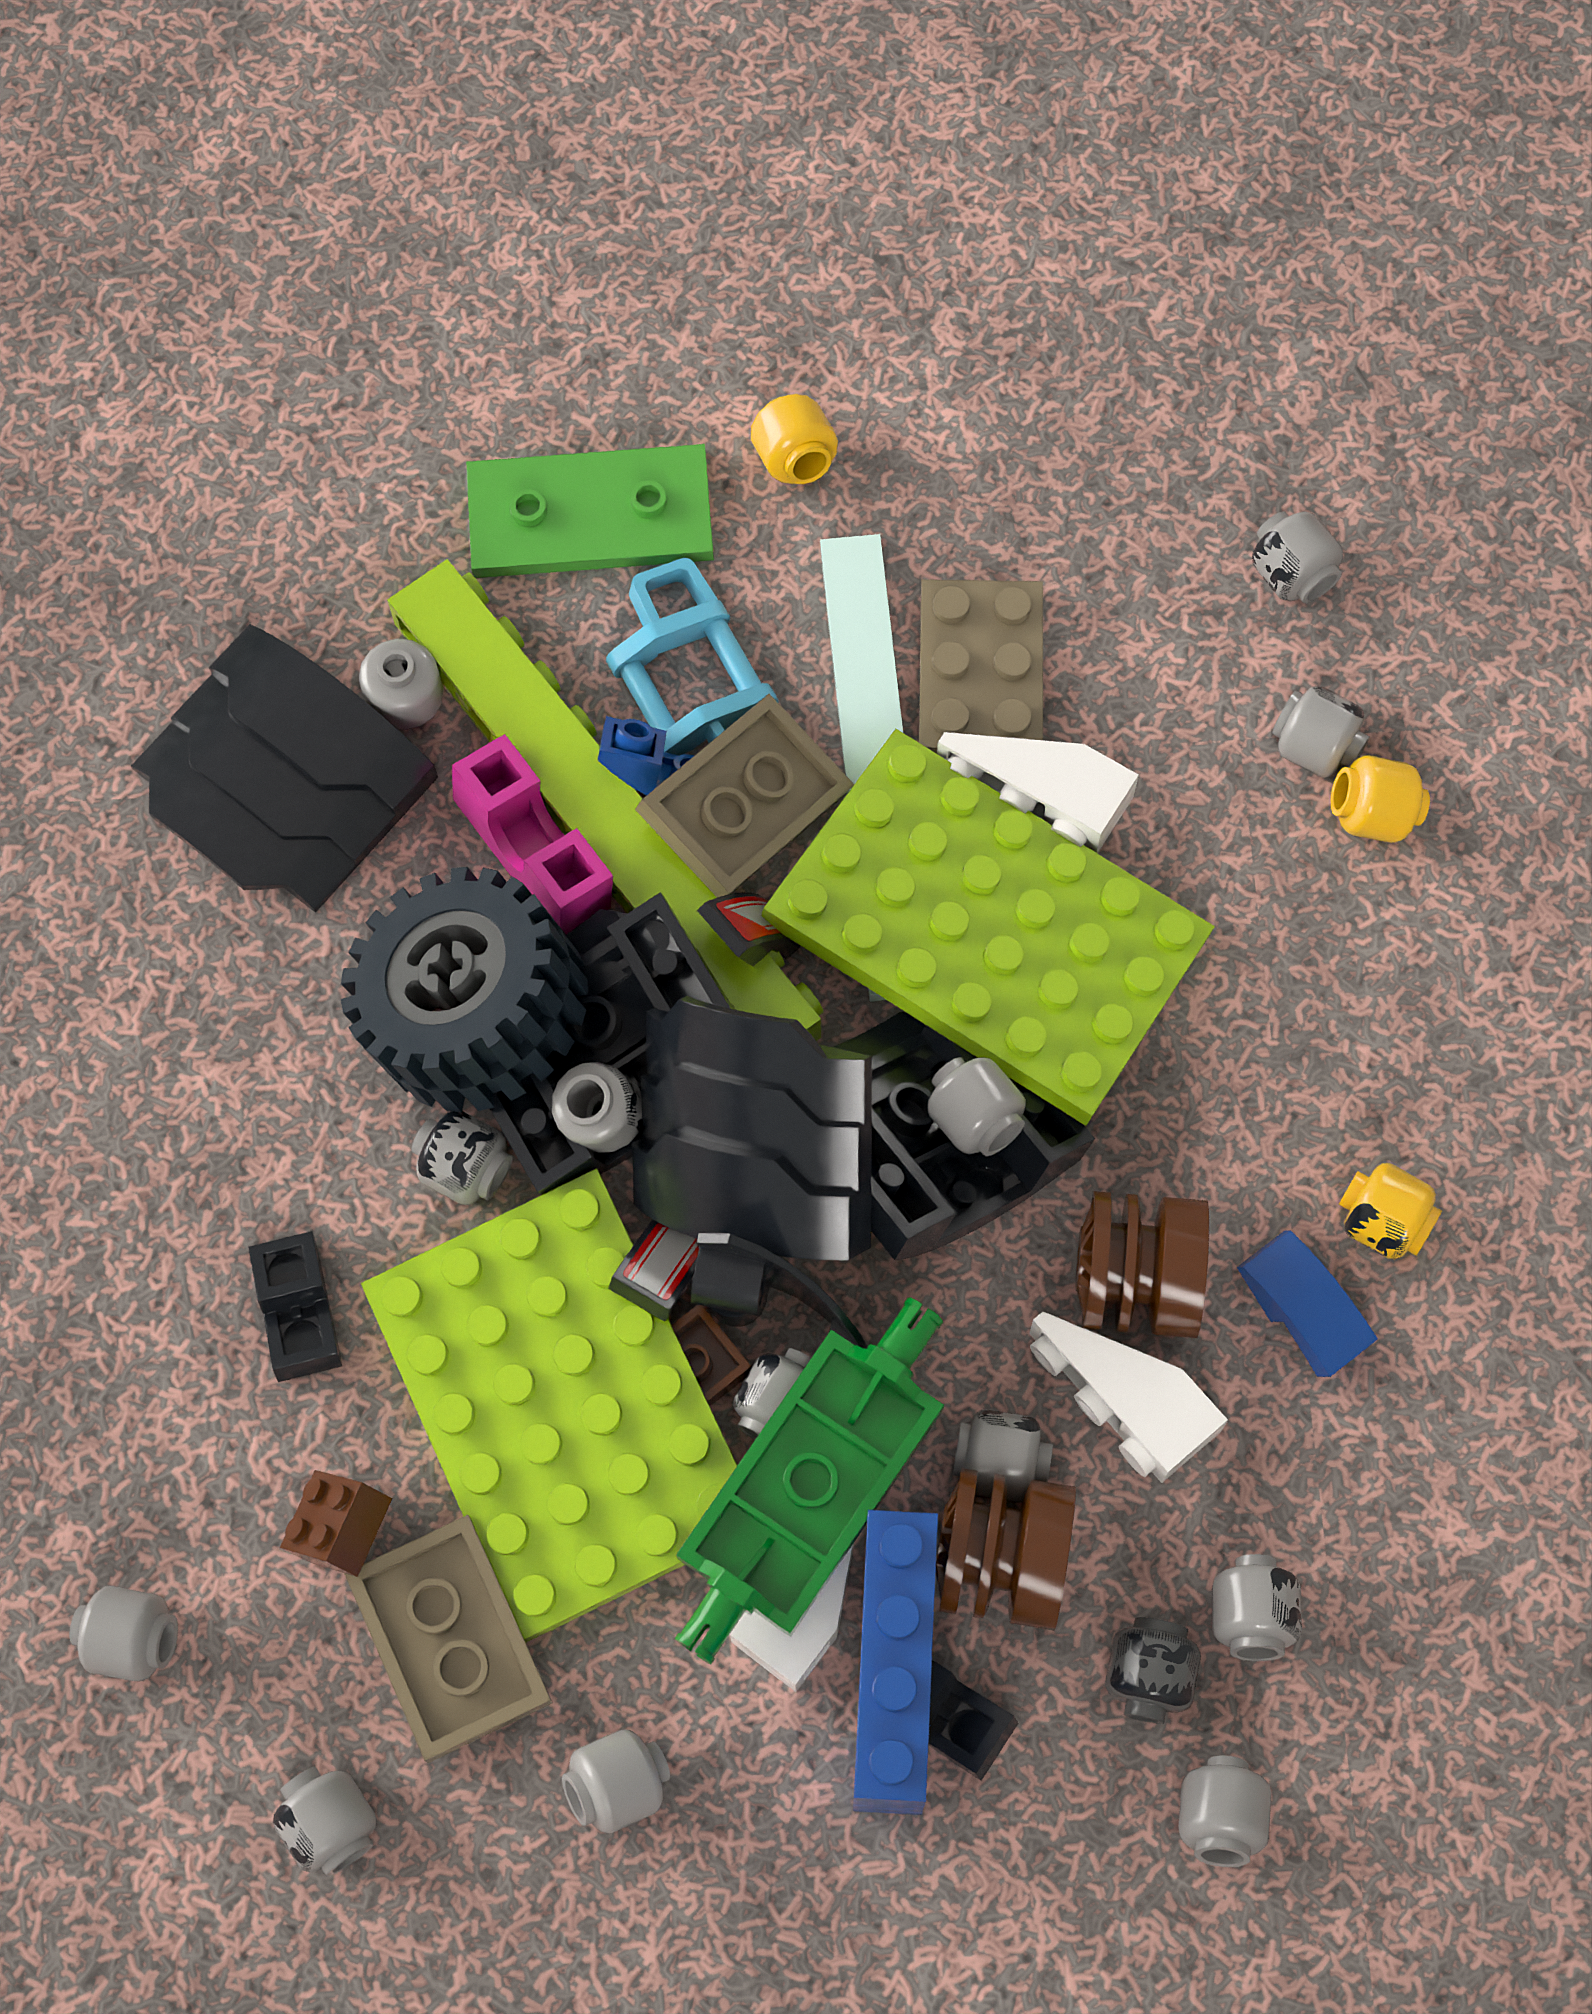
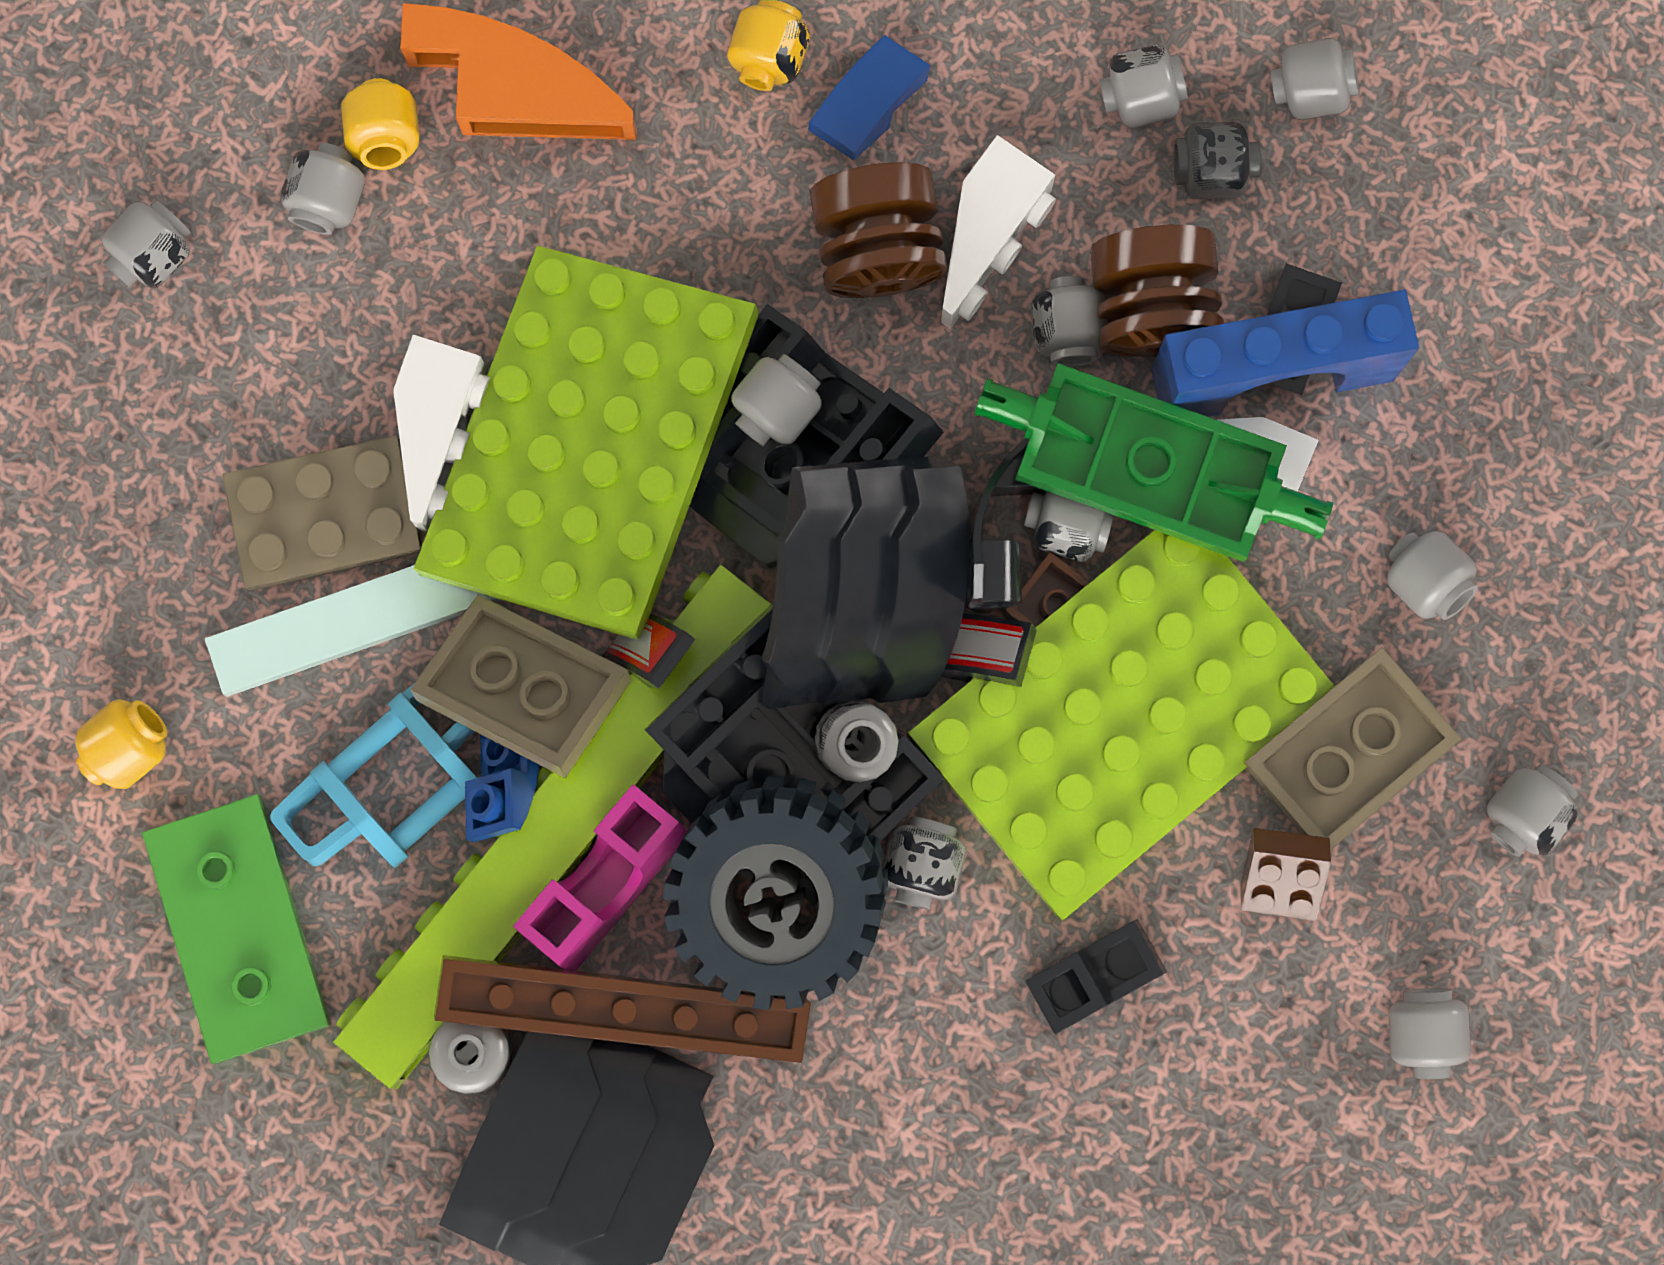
camera: 105 degrees left, 10 degrees up
(400, 809) = (617, 1009): none -> reddish brown plate
(1402, 937) = (512, 78): none -> orange slope

